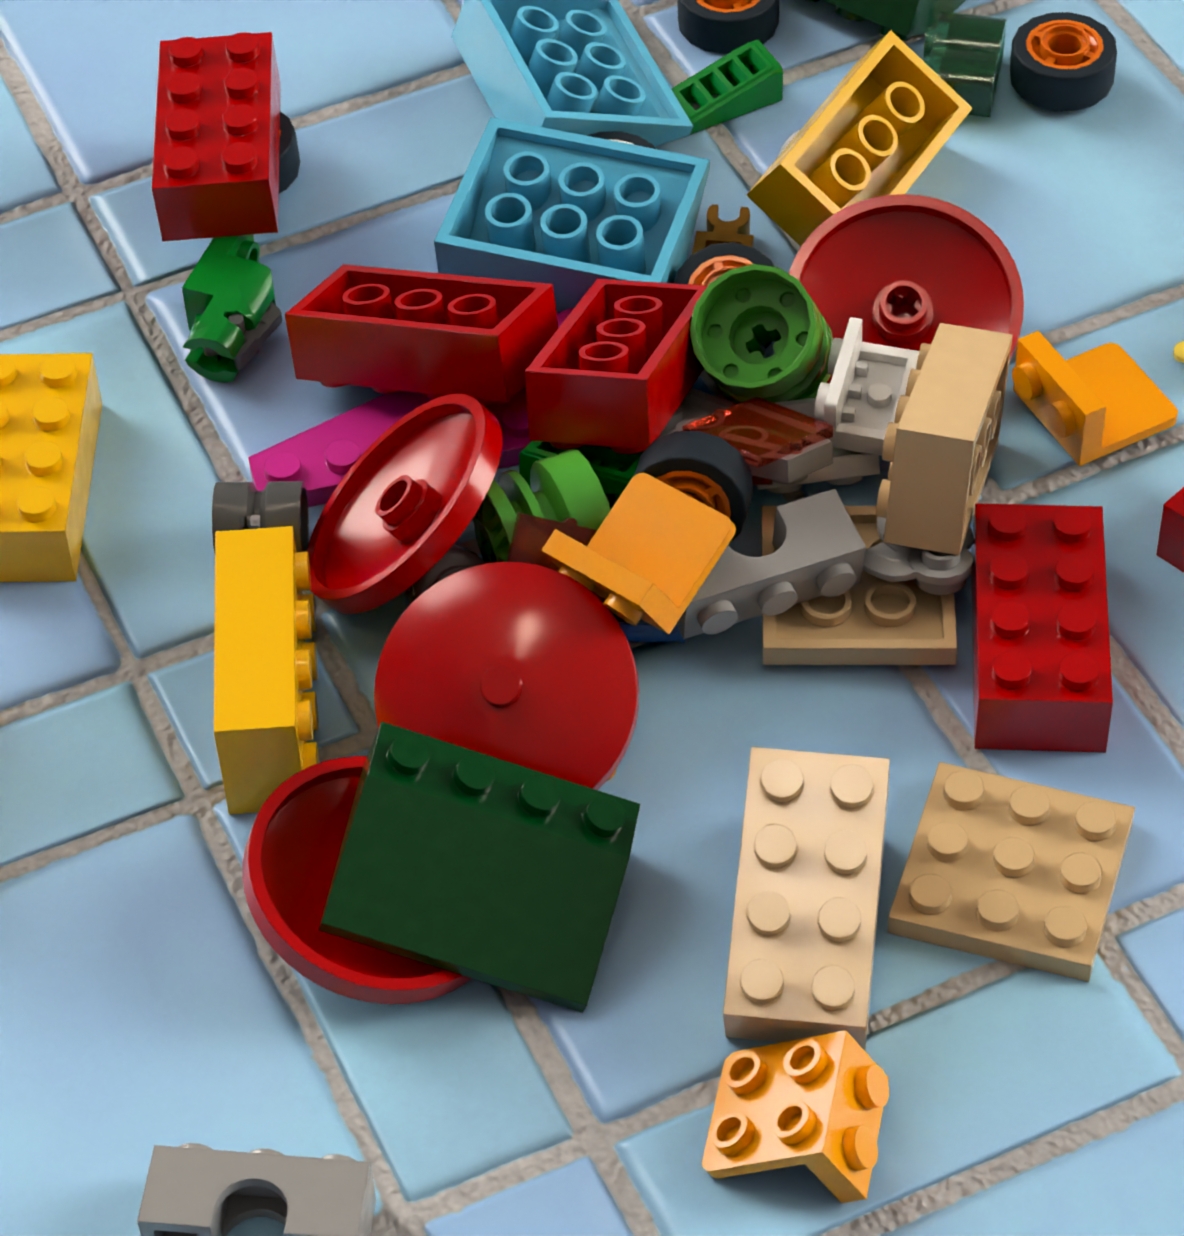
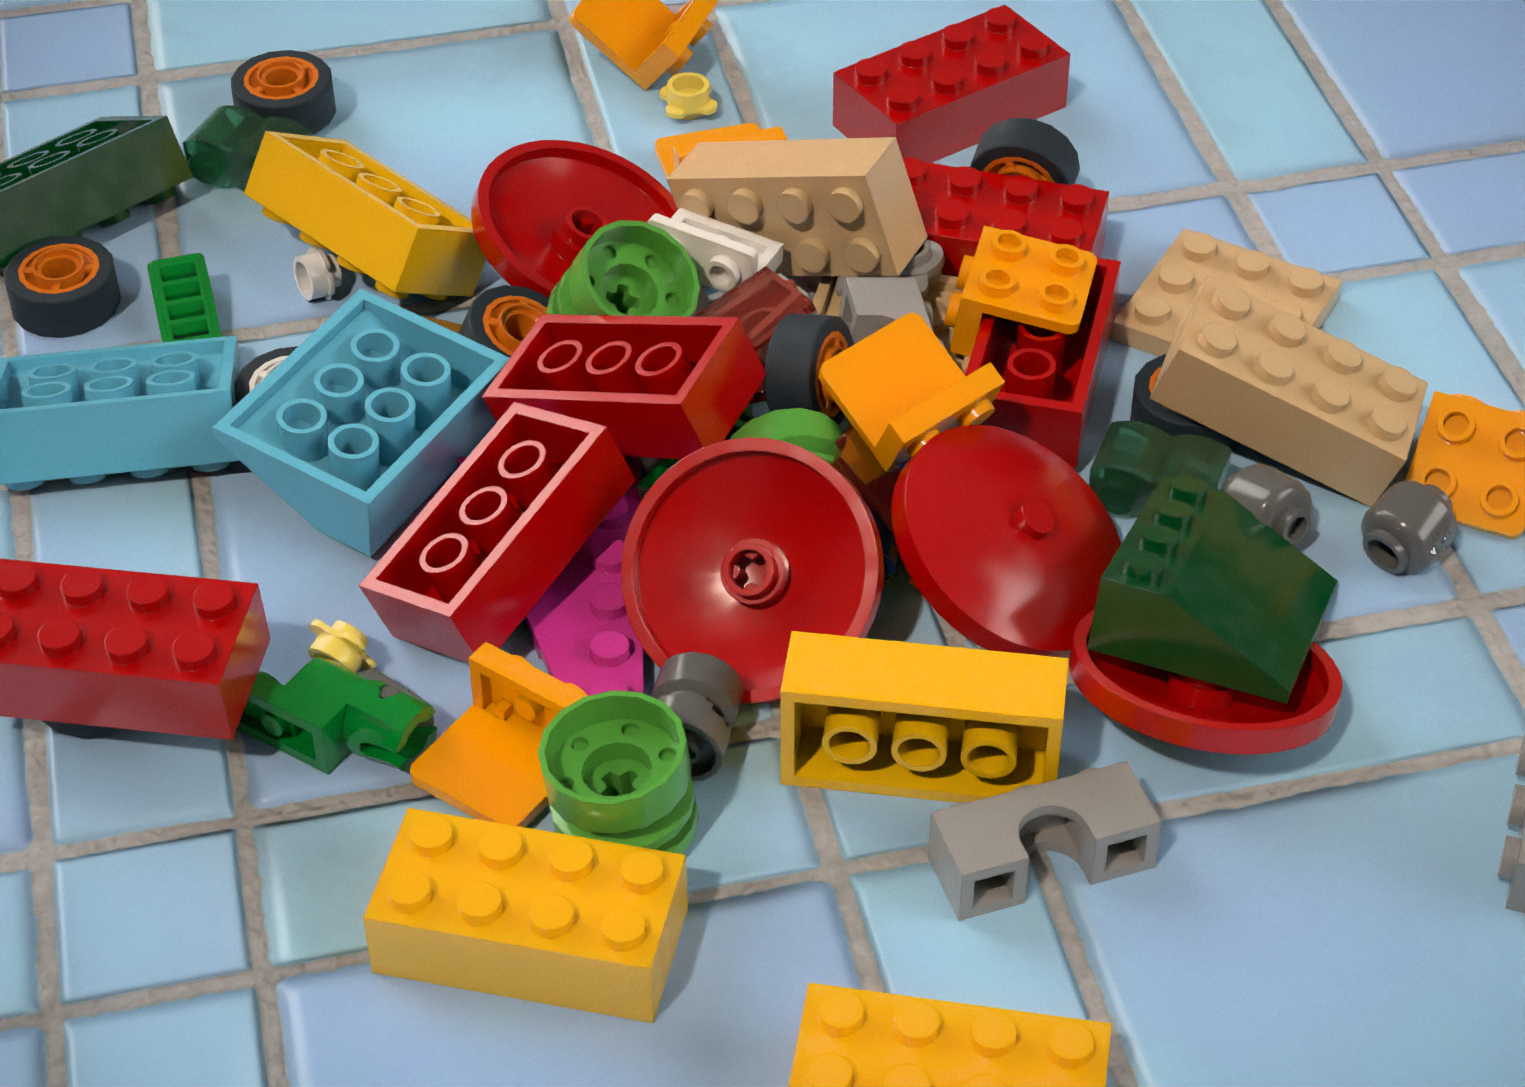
camera: 80 degrees left, 5 degrees down
(145, 752) = (1092, 817): none -> light grey arch
(149, 480) = (620, 772): none -> bright green wheel
(212, 419) = (490, 753): none -> light orange bracket
(301, 281) = (340, 645): none -> light yellow plate
(658, 917) = (1273, 499): none -> dark grey head
(661, 1050) = (1408, 527): none -> dark grey head
(685, 826) = (1139, 455): none -> clear green brick
(836, 688) = (1050, 373): none -> red brick
(891, 639) = (1020, 282): none -> light orange bracket
(1145, 634) = (1027, 149): none -> black wheel

